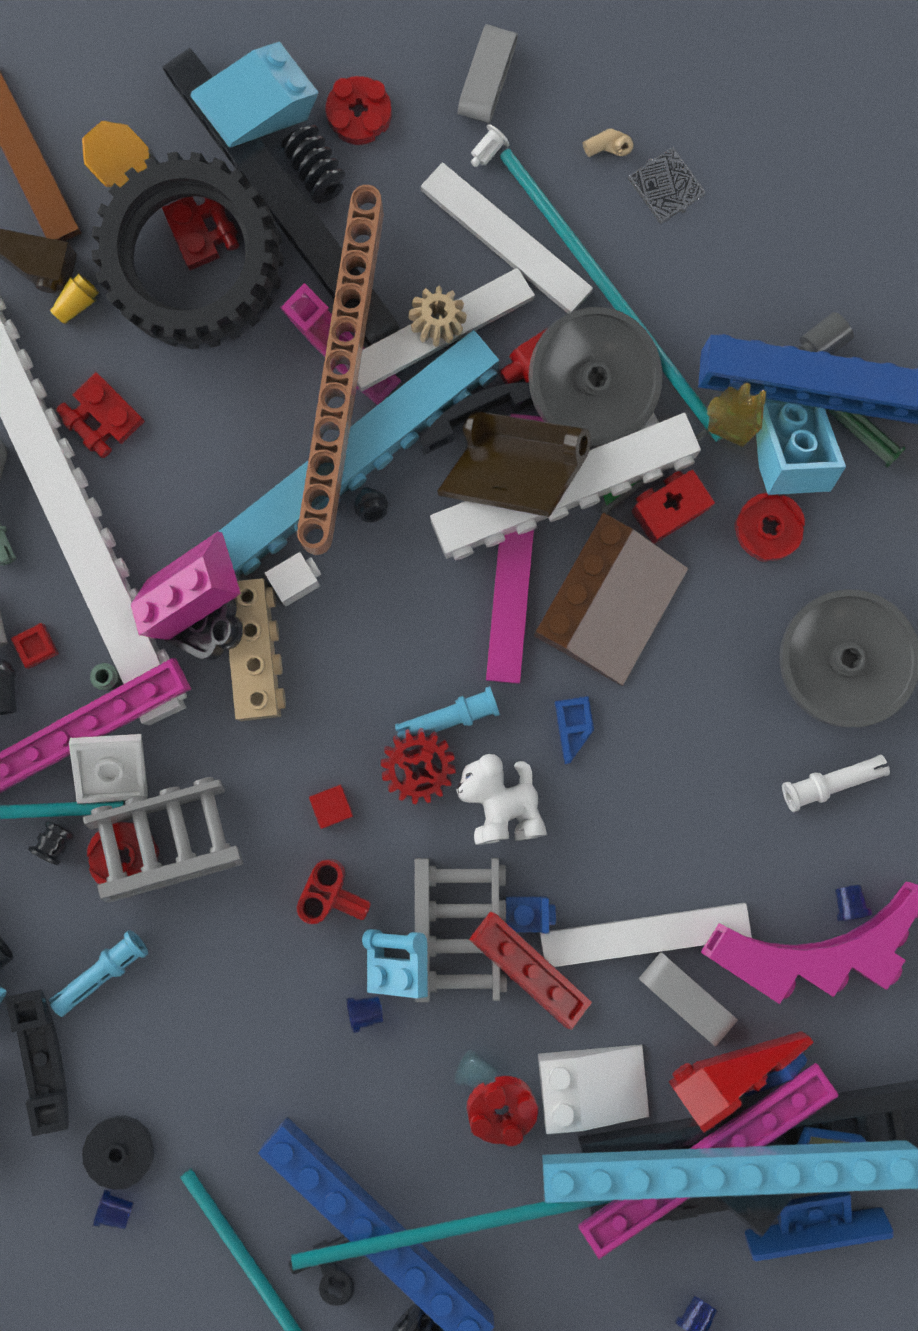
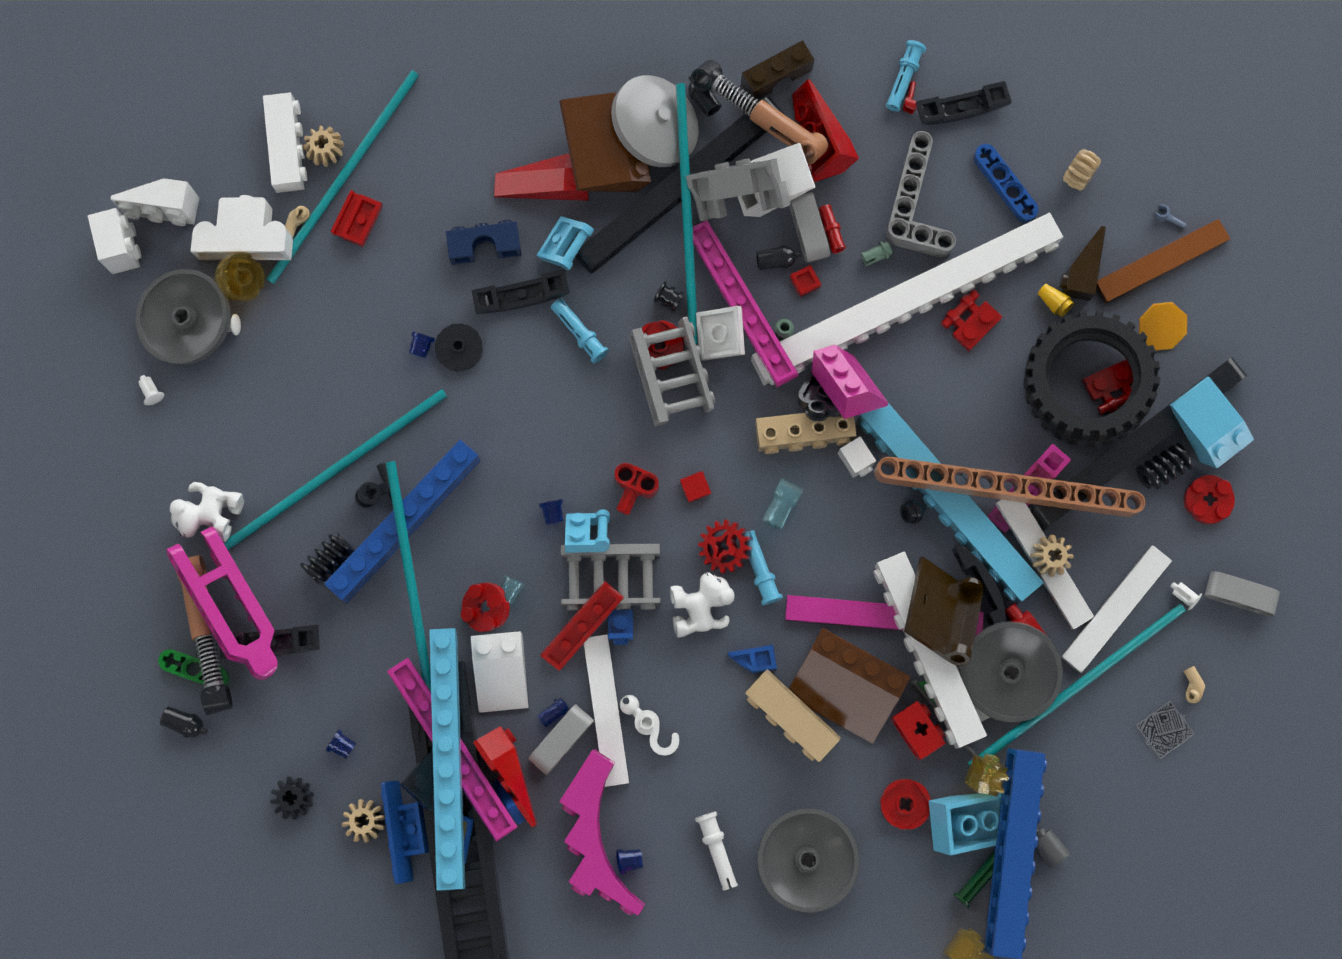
camera: 85 degrees right, 5 degrees down
(350, 680) = (784, 499): none -> clear light blue piece
(648, 1008) = (553, 712): none -> clear blue pin
(655, 675) = (792, 715): none -> tan brick
(665, 876) = (648, 724): none -> white piece
(809, 1295) = (365, 830): none -> tan gear

